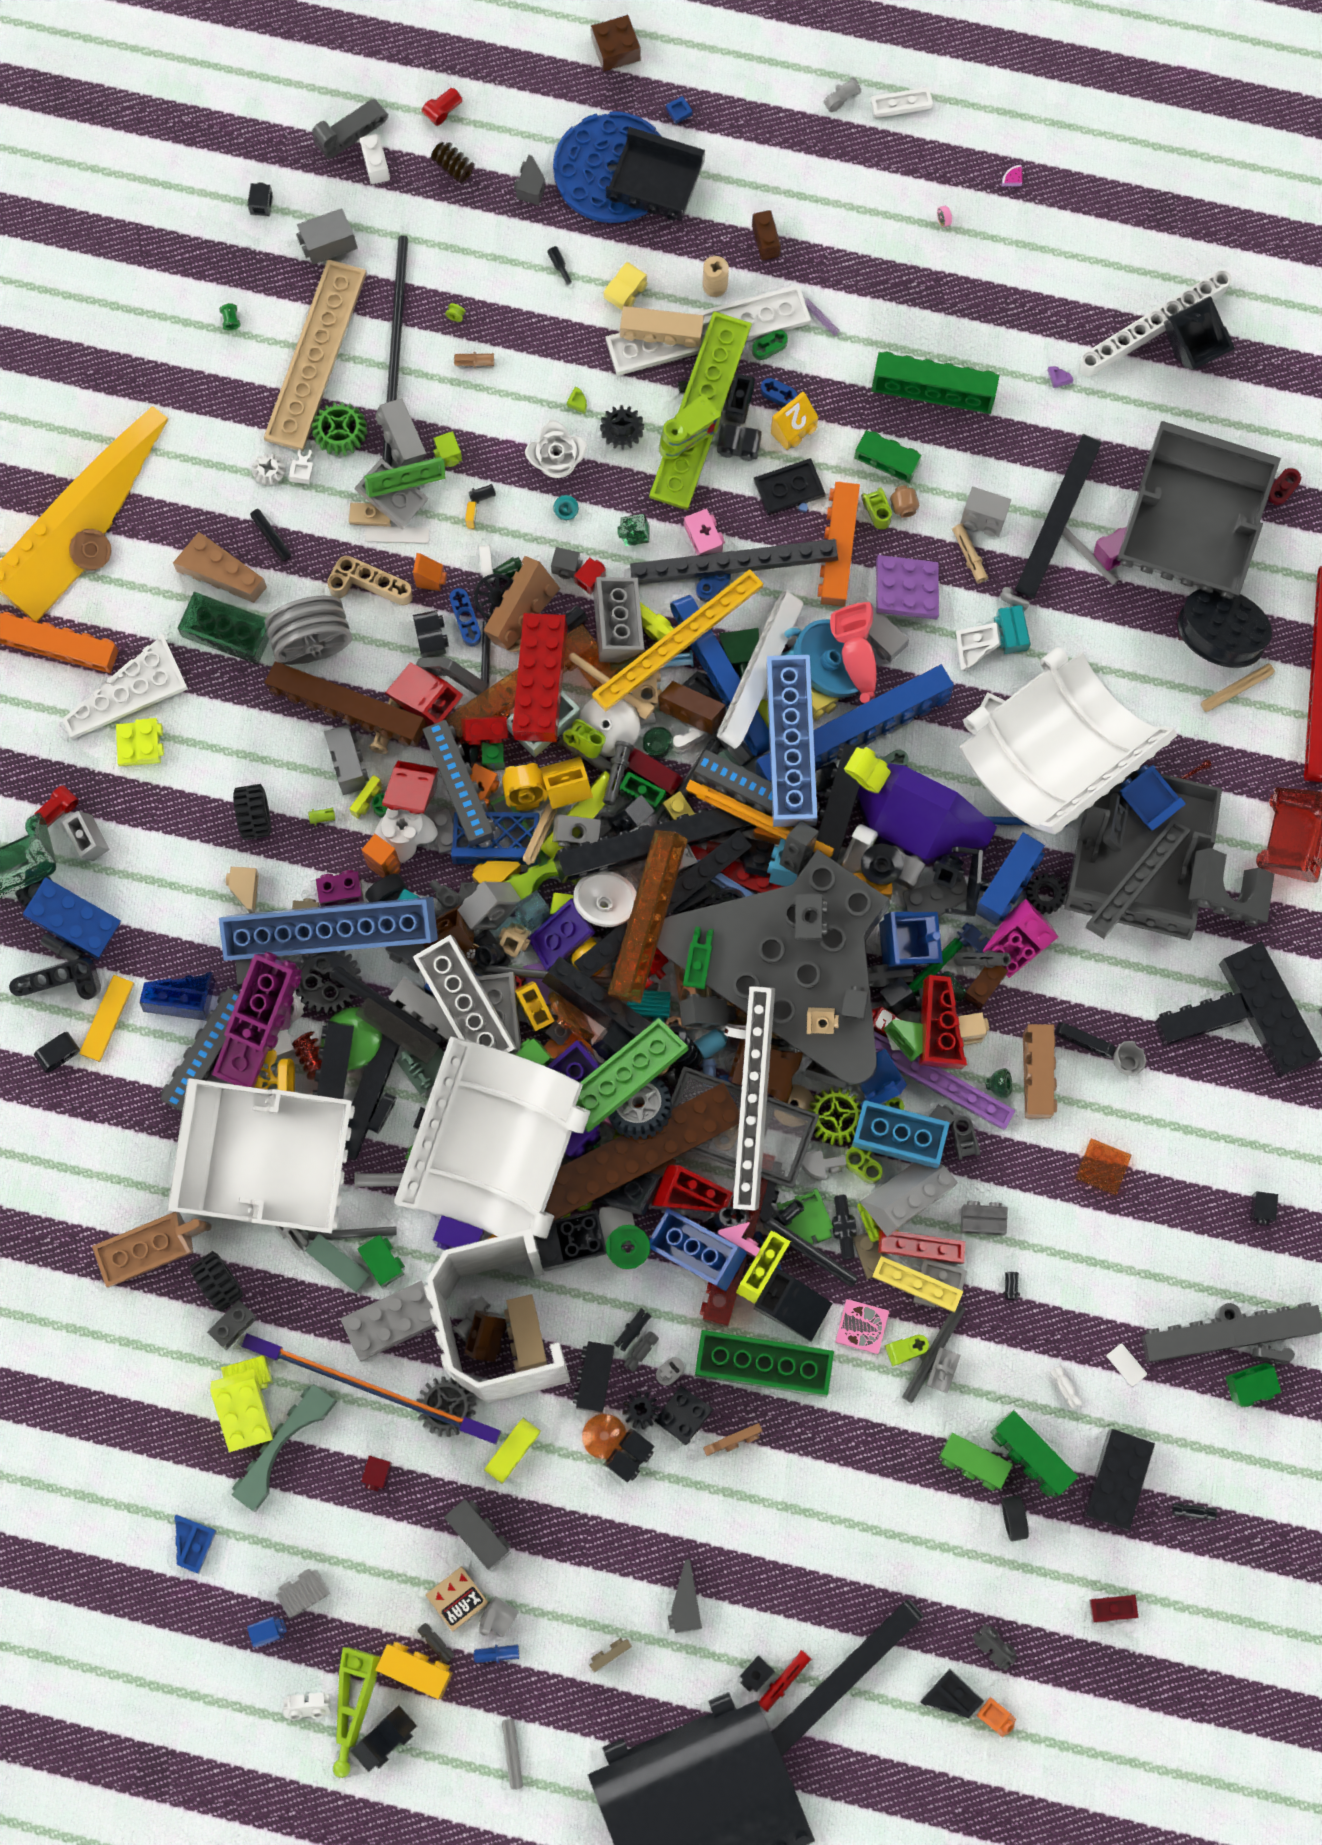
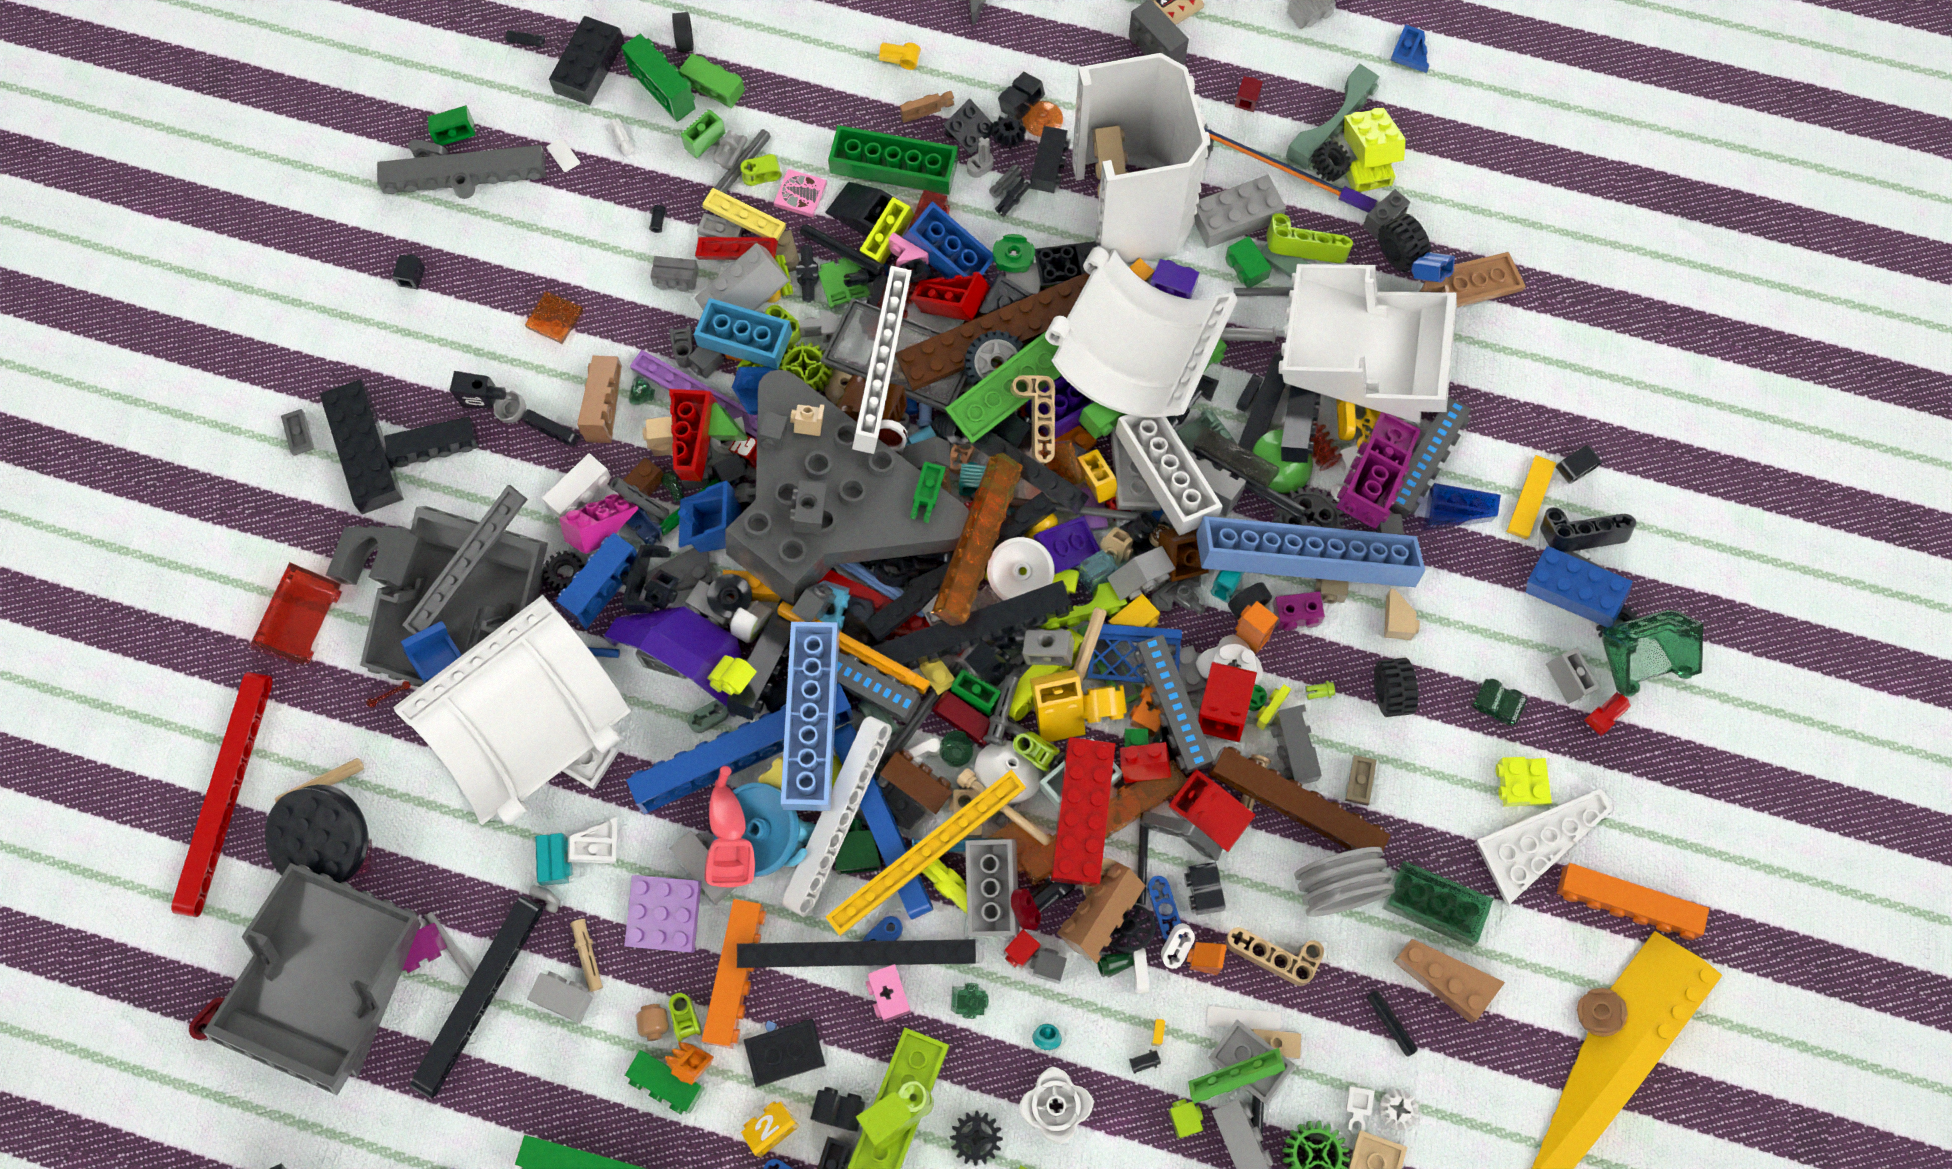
camera: 175 degrees left, 5 degrees down
(155, 811) = (1499, 702): none -> clear green brick
(189, 1240) = (1433, 267): none -> blue brick
(279, 1379) = (1337, 156): none -> black tyre
(287, 735) = (1360, 780): none -> dark tan plate
(316, 1284) = (1306, 243): none -> lime beam
(454, 583) = (1174, 944): none -> white beam
(588, 600) = (1025, 909): none -> dark red plate
(592, 1039) = (1037, 418): none -> tan beam
(763, 1506) = (904, 55): none -> yellow piece
(867, 467) = (688, 1062): none -> orange plate
(975, 1386) = (703, 133): none -> bright green brick
(1047, 977) = (577, 486): none -> white brick
(1172, 1071) = (475, 390): none -> black torso

